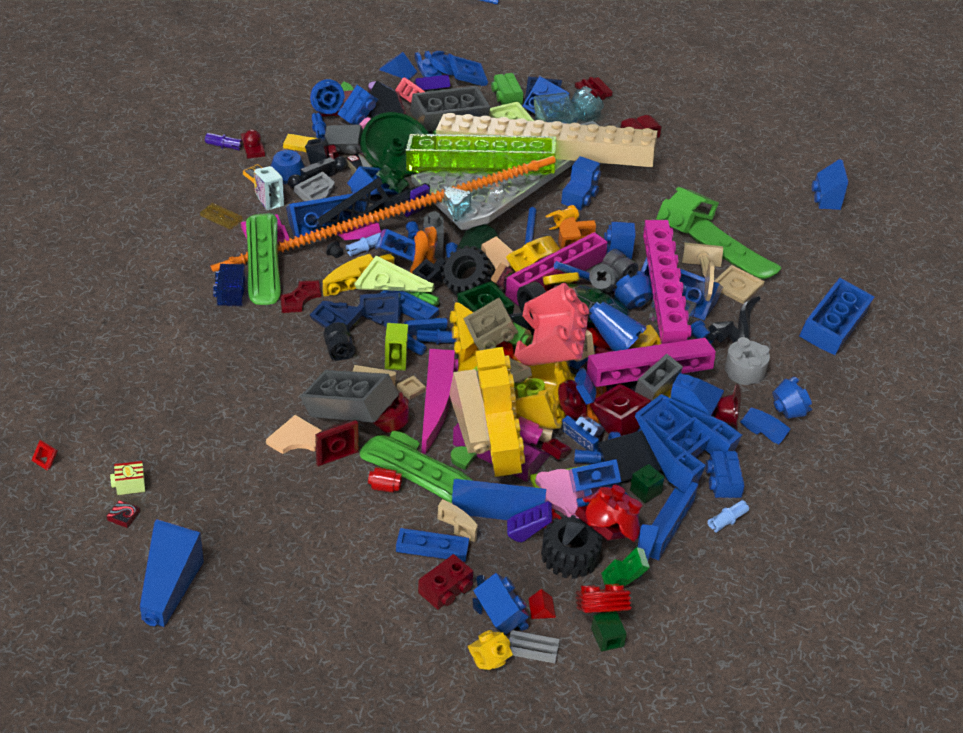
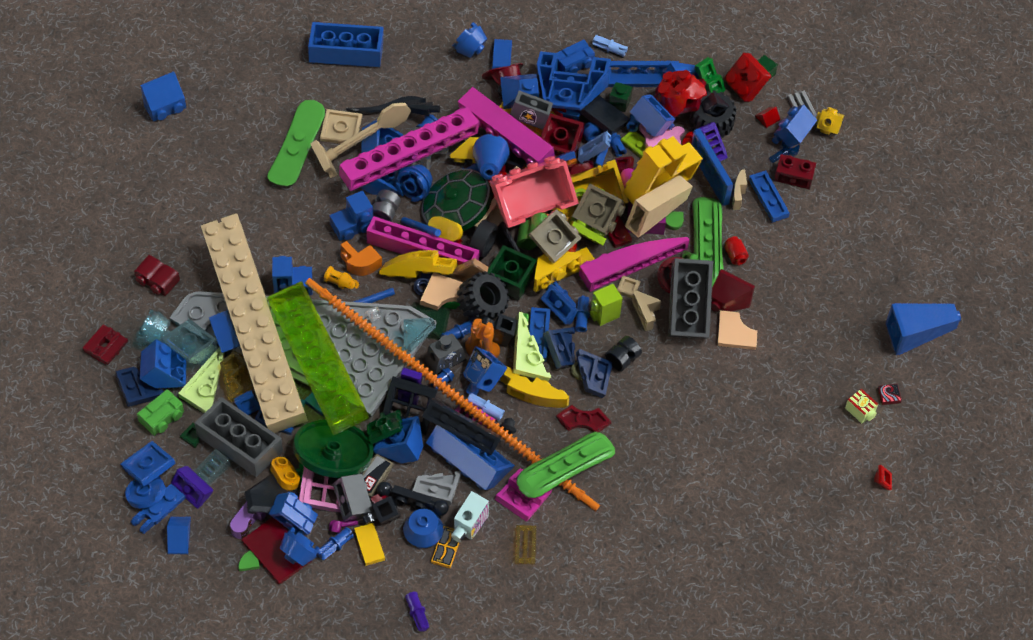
camera: 120 degrees left, 15 degrees up
(230, 284) = (617, 469): clear blue brick -> none
(252, 144) = (401, 585): dark red tile -> none
(405, 88) = (215, 496): coral slope -> none
(599, 272) = (420, 201): dark grey piece -> none
(682, 209) = (270, 187): bright green piece -> none
(747, 361) = (444, 83): light grey brick -> none

